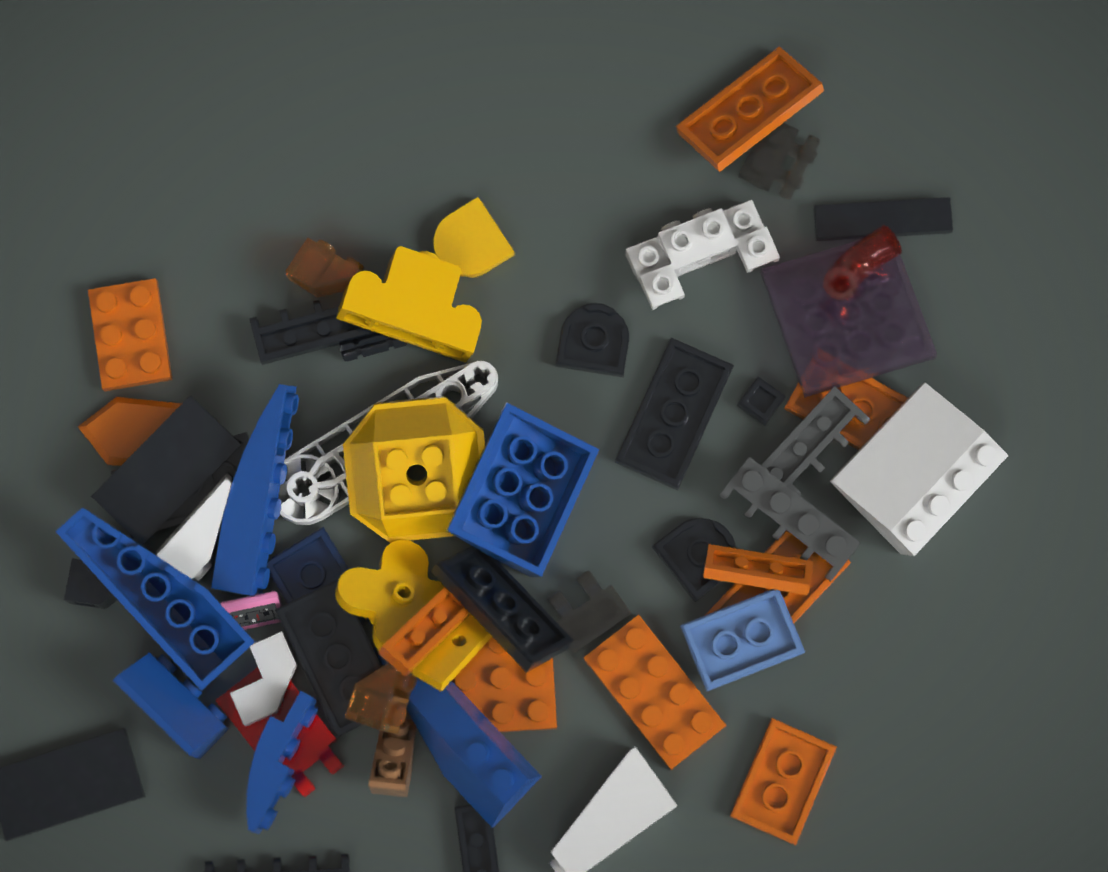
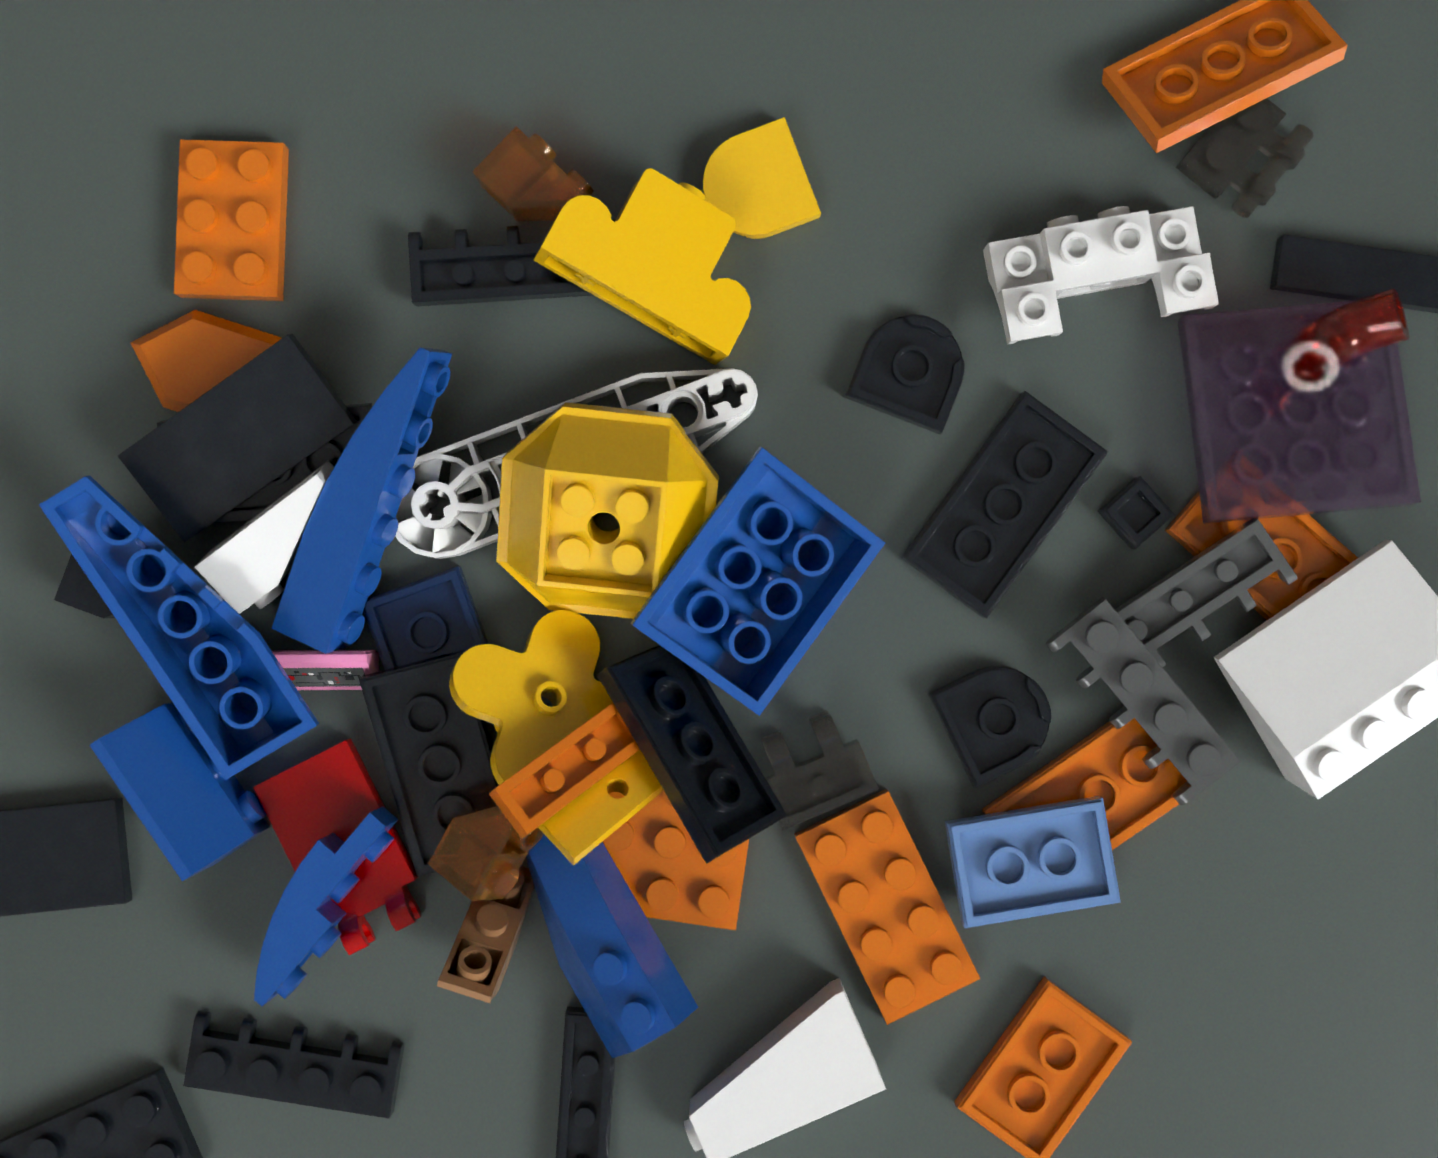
camera: 15 degrees right, 10 degrees up
(266, 695) = (347, 760): white tile -> none
(368, 346) = (575, 310): black axle -> none
(758, 569) = (1081, 769): orange plate -> none

